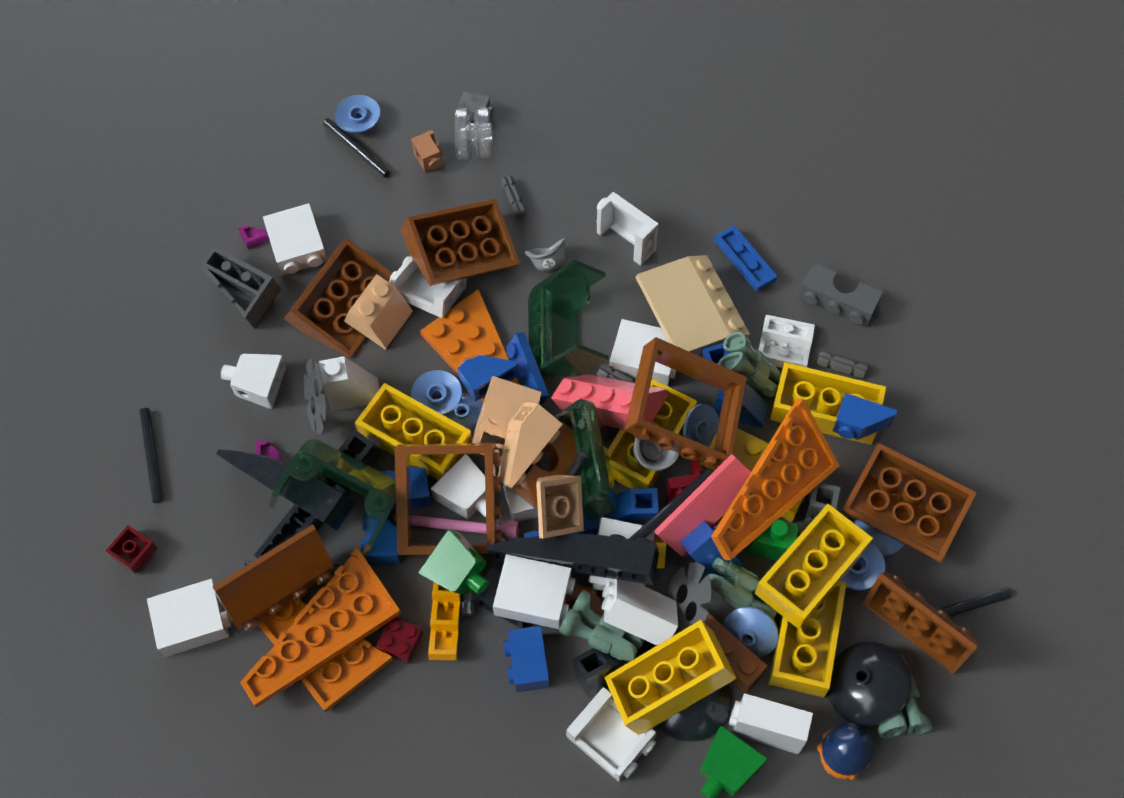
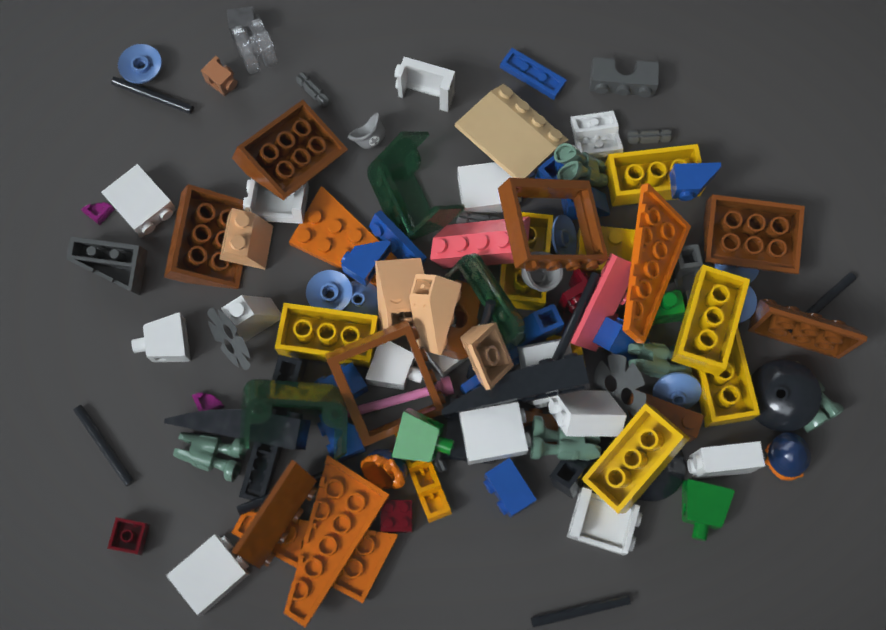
camera: 25 degrees left, 10 degrees up
(243, 496) = (204, 450): none -> sand green piece
(407, 586) = (384, 470): none -> orange hair

